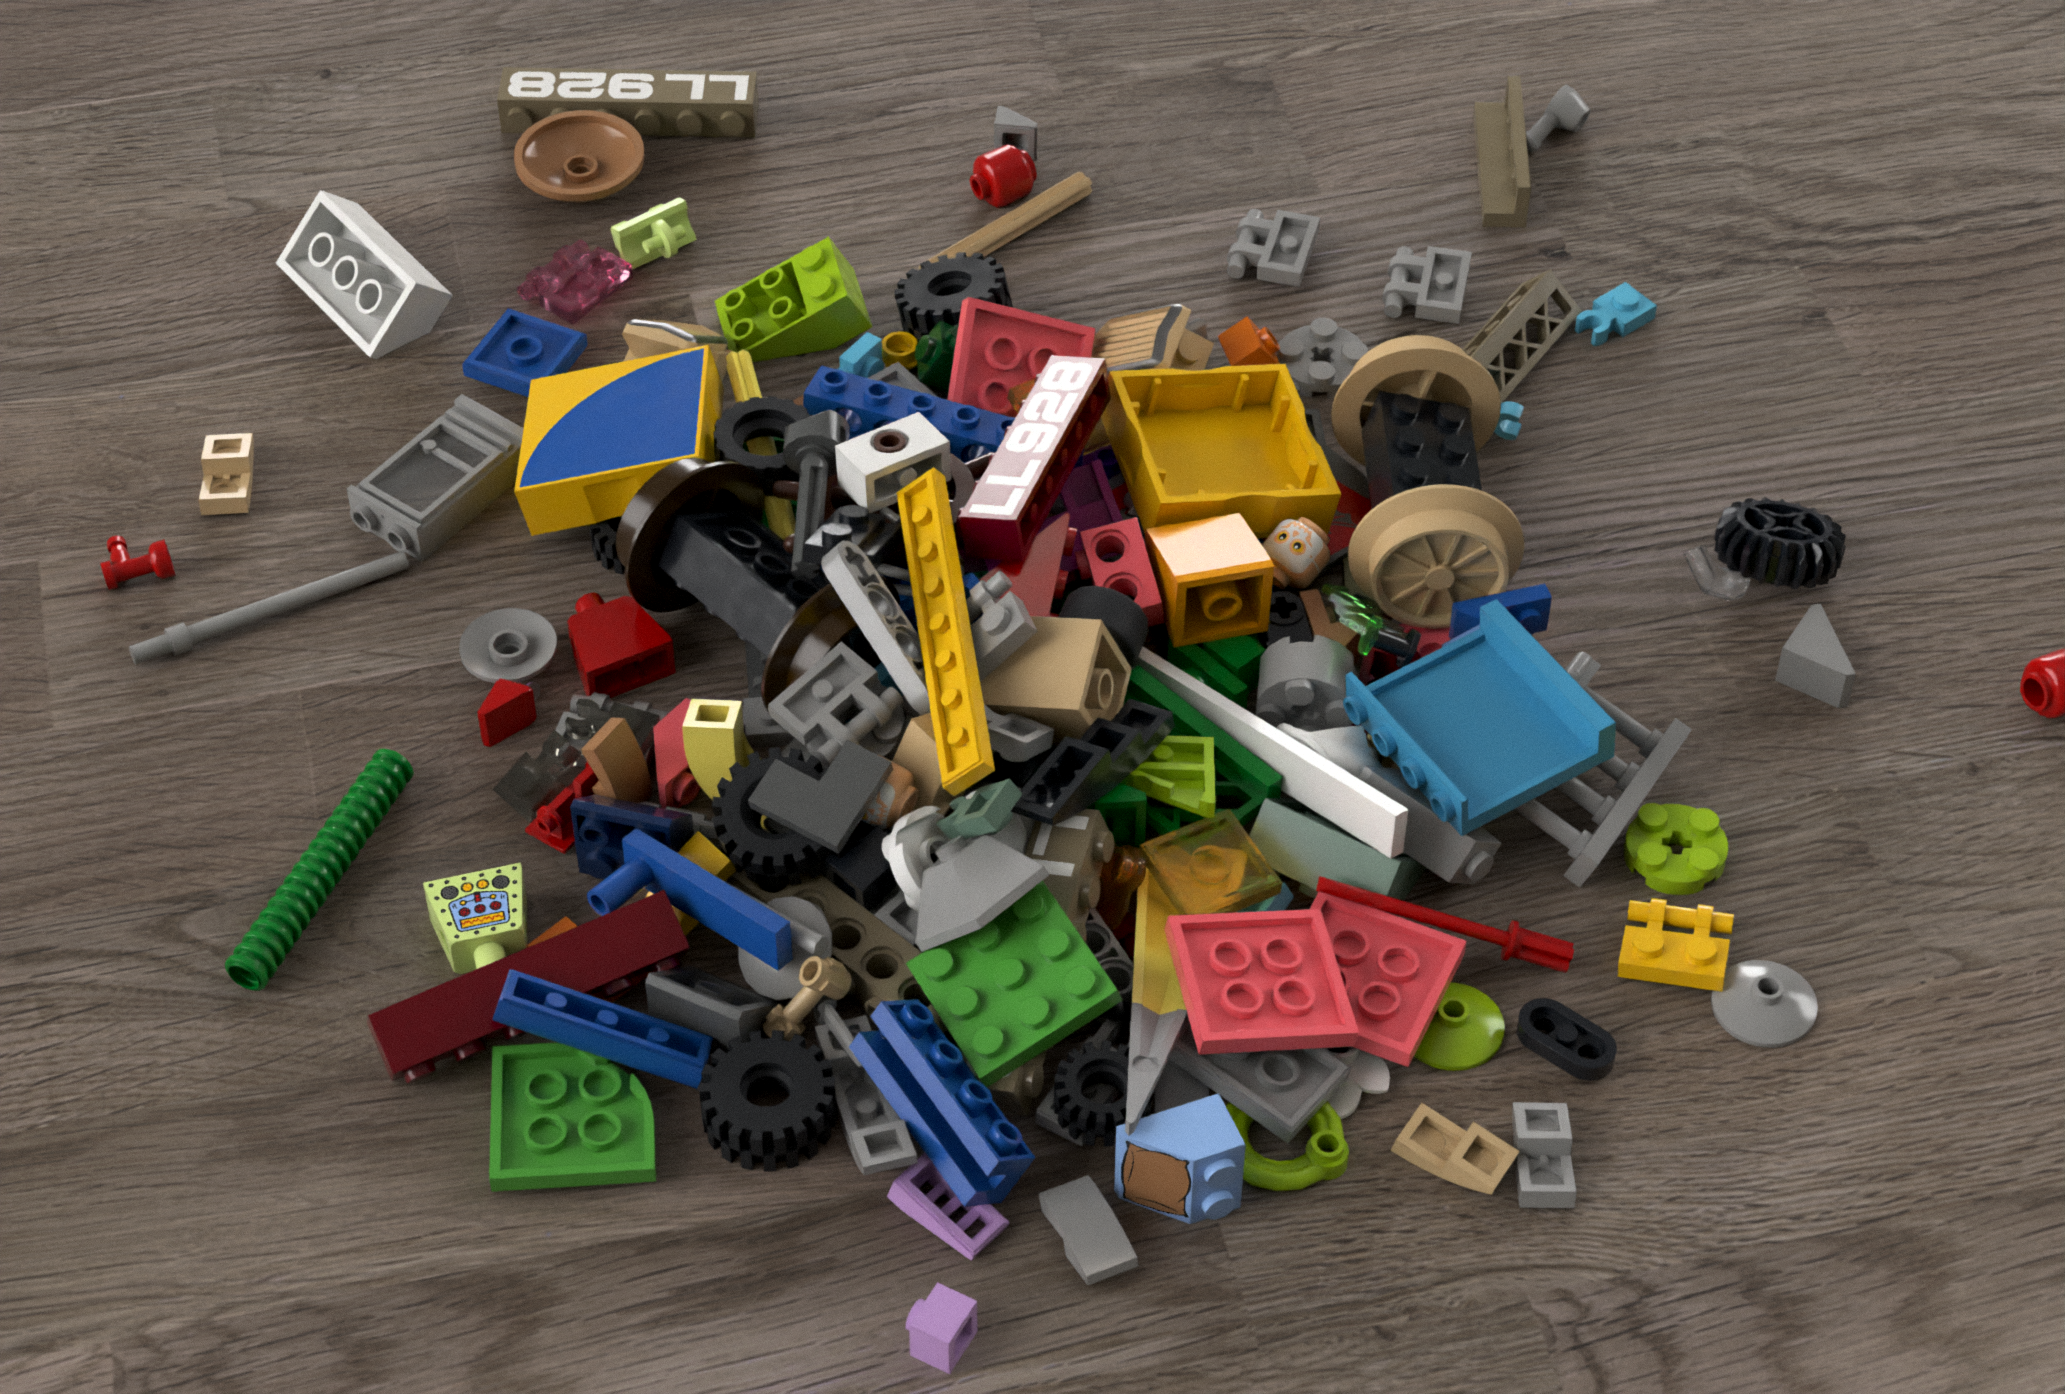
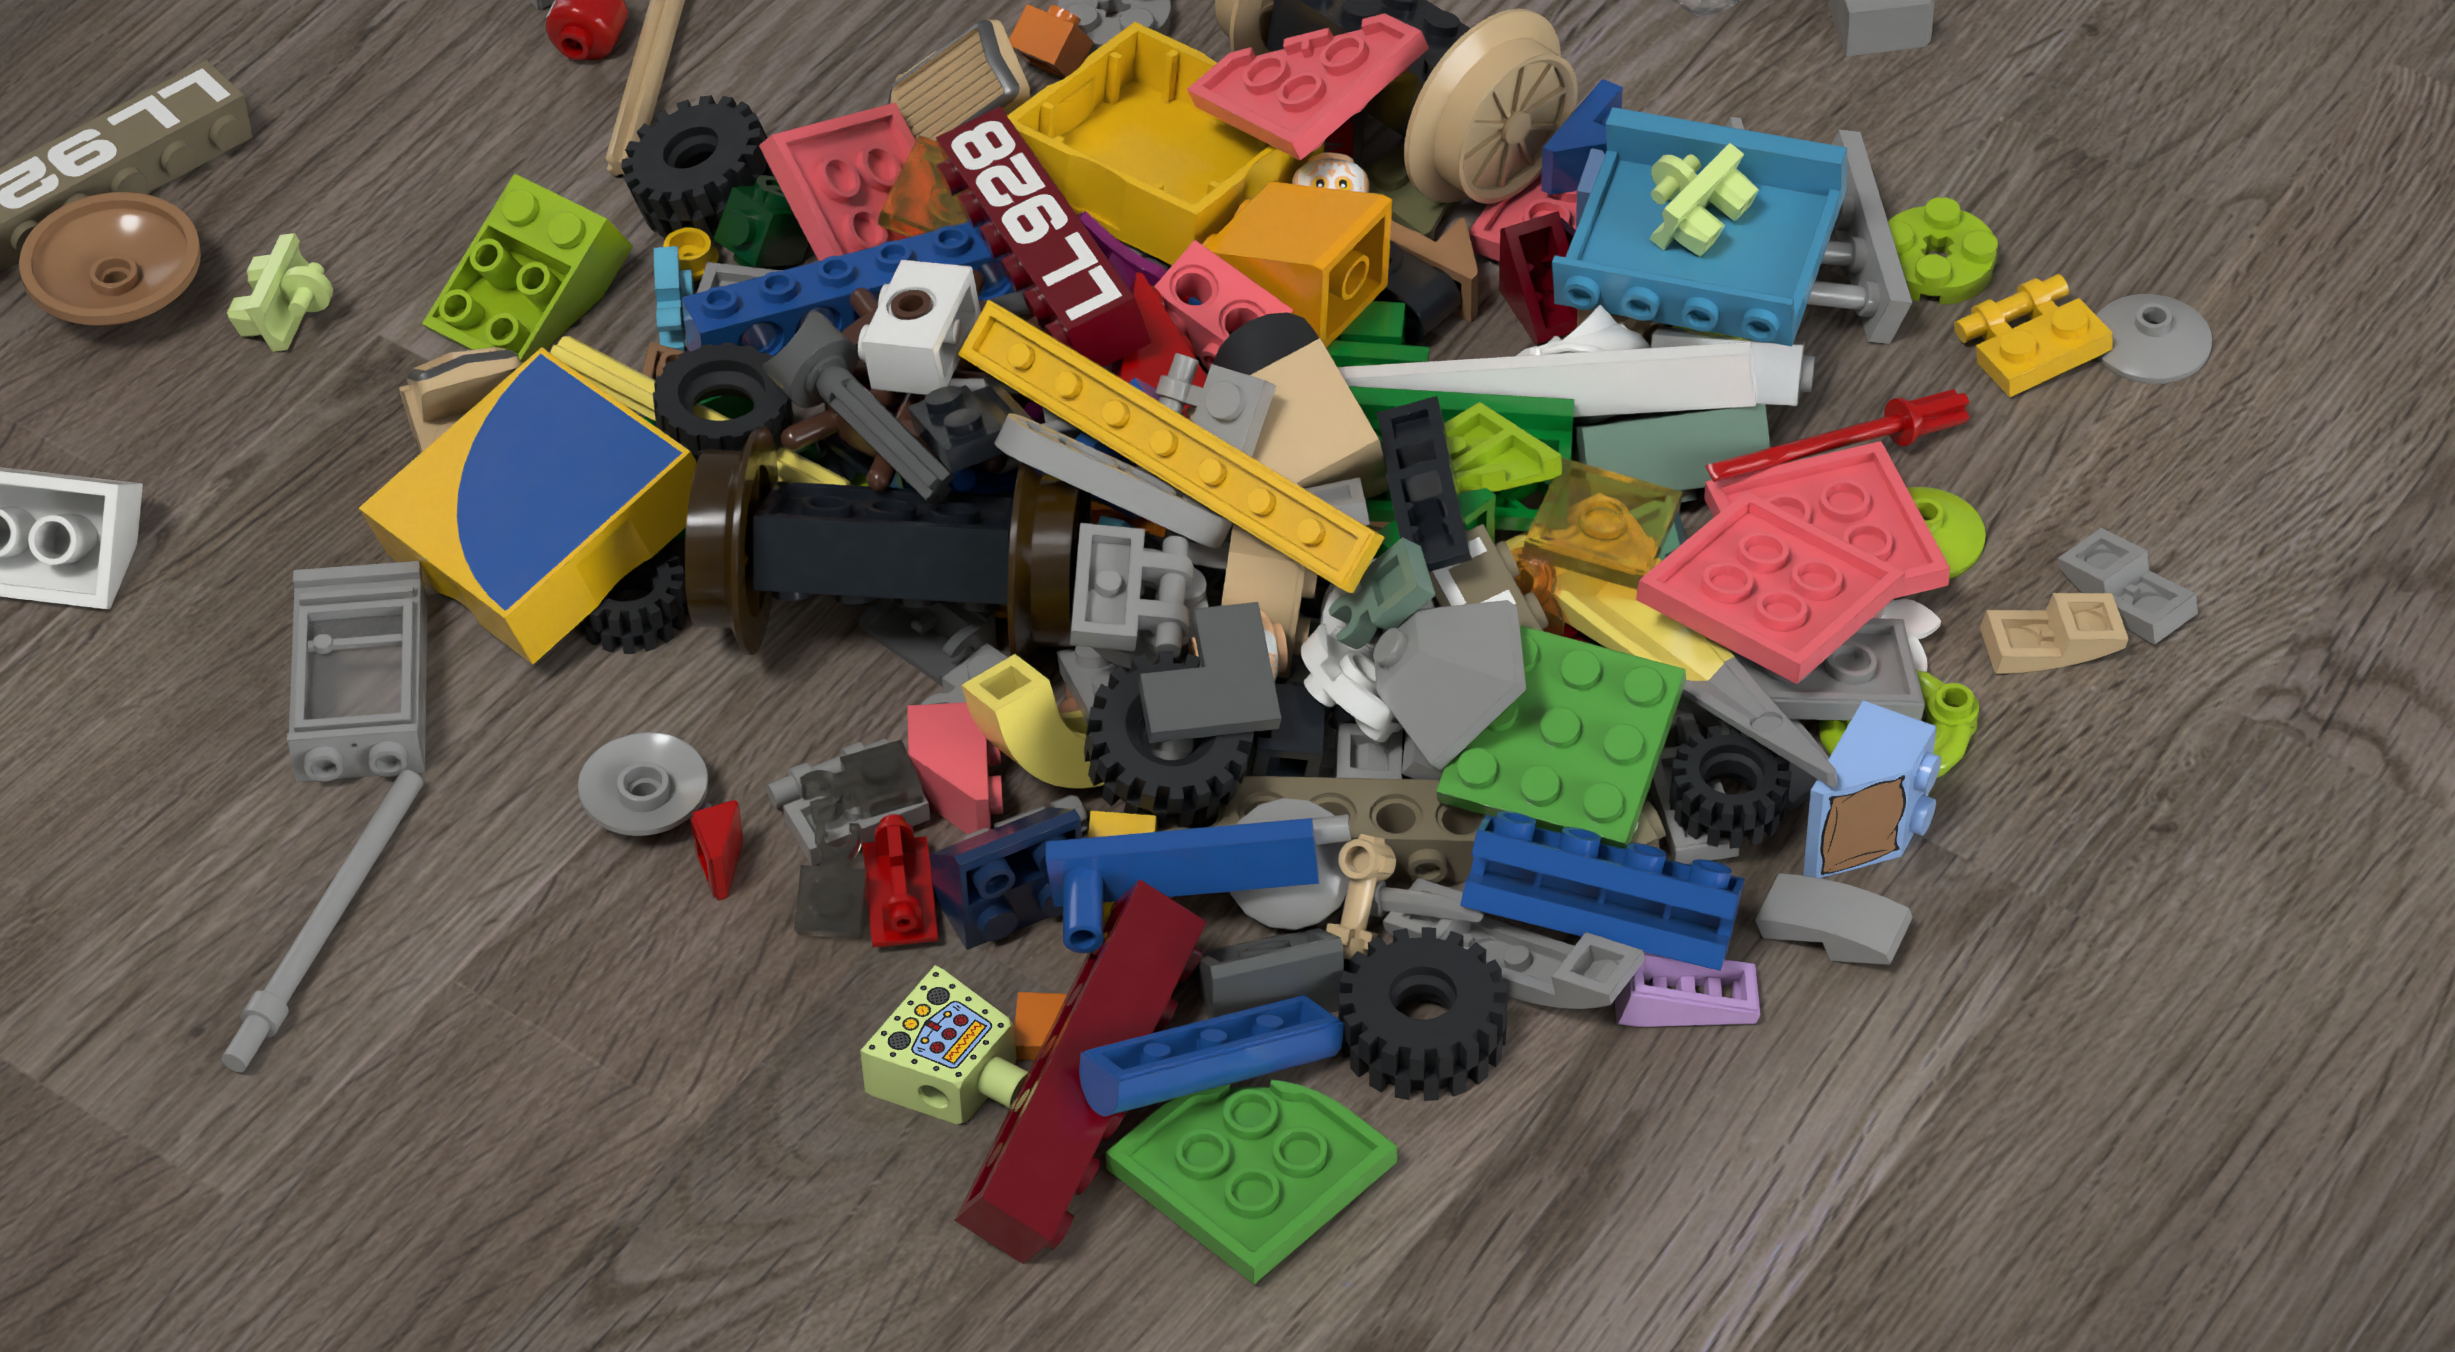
camera: 40 degrees left, 0 degrees up
(123, 568) = (141, 952): red piece -> none
(227, 474) = (98, 822): tan slope -> none
(319, 870) = (715, 1122): green piece -> none
(523, 350) = (289, 498): blue plate -> none
(576, 280) = (265, 397): clear pink plate -> none
(618, 645) = (753, 711): red torso -> none
(618, 763) = (924, 803): medium nougat slope -> none
(942, 1327) = (1814, 1089): lavender plate -> none
(1304, 684) = (1485, 308): light grey brick -> none
(1314, 464) = (1311, 85): none -> coral plate
(1372, 624) = (1522, 212): piece -> none
(1492, 688) = (1690, 194): none -> yellowish green hips
(1568, 1039) = (2039, 474): black plate -> none

